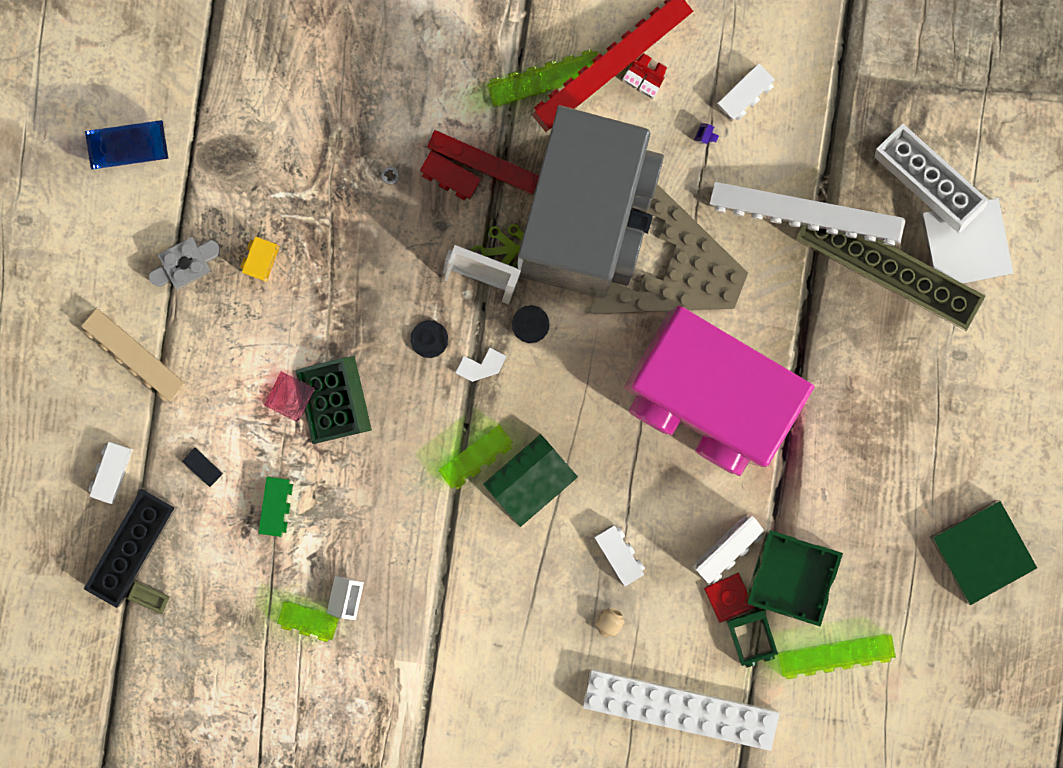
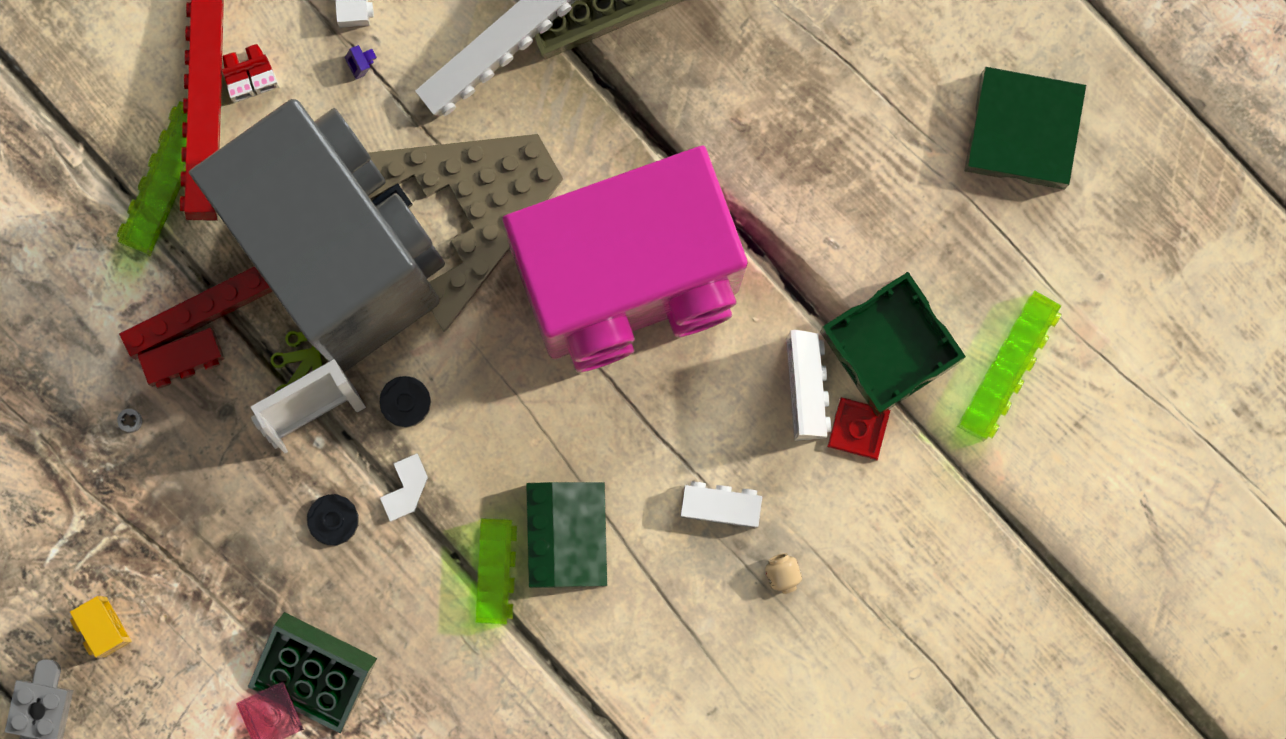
camera: 60 degrees left, 5 degrees down
(681, 709) = (935, 574): white brick -> none
(749, 618) = (895, 429): dark green window -> none

